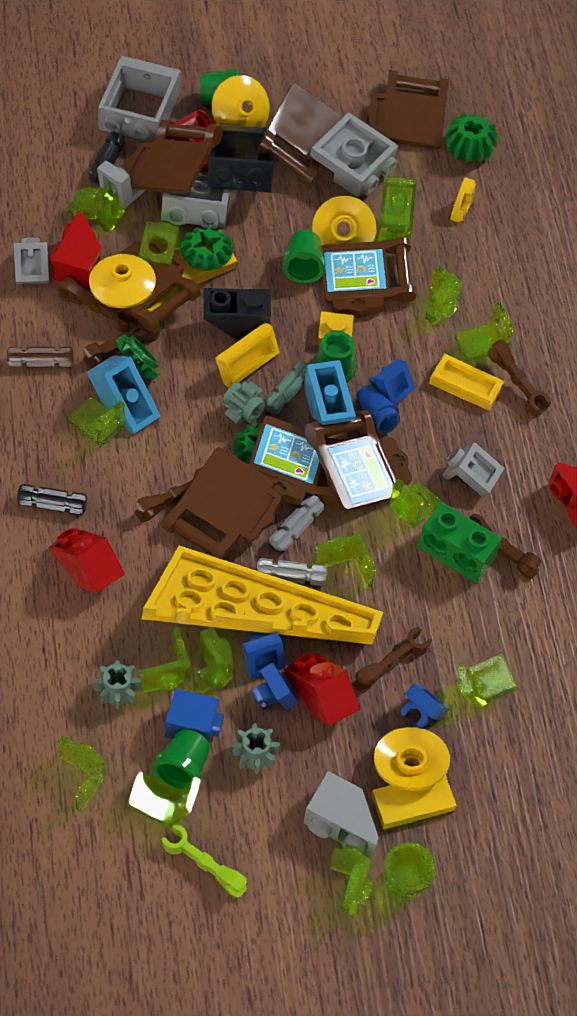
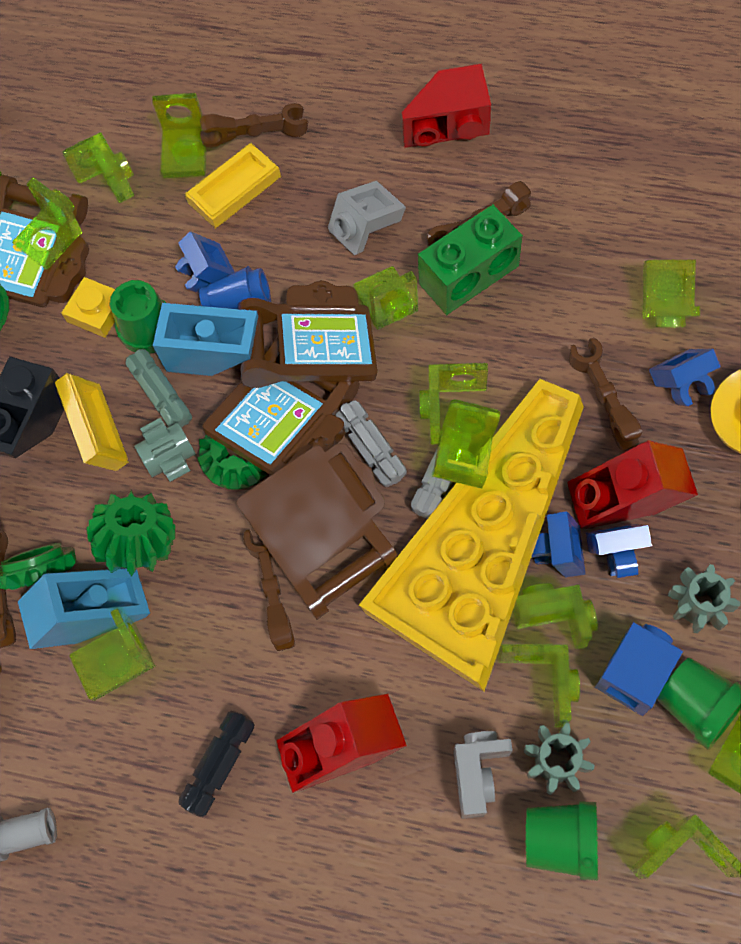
camera: 55 degrees left, 10 degrees up
(68, 699) = (563, 839): none -> green piece
(89, 637) = (474, 782): none -> light grey bracket
(179, 401) = (131, 532): none -> green gear
(308, 570) = (466, 443): none -> clear neon green bracket
(389, 279) = (55, 216): none -> clear neon green bracket

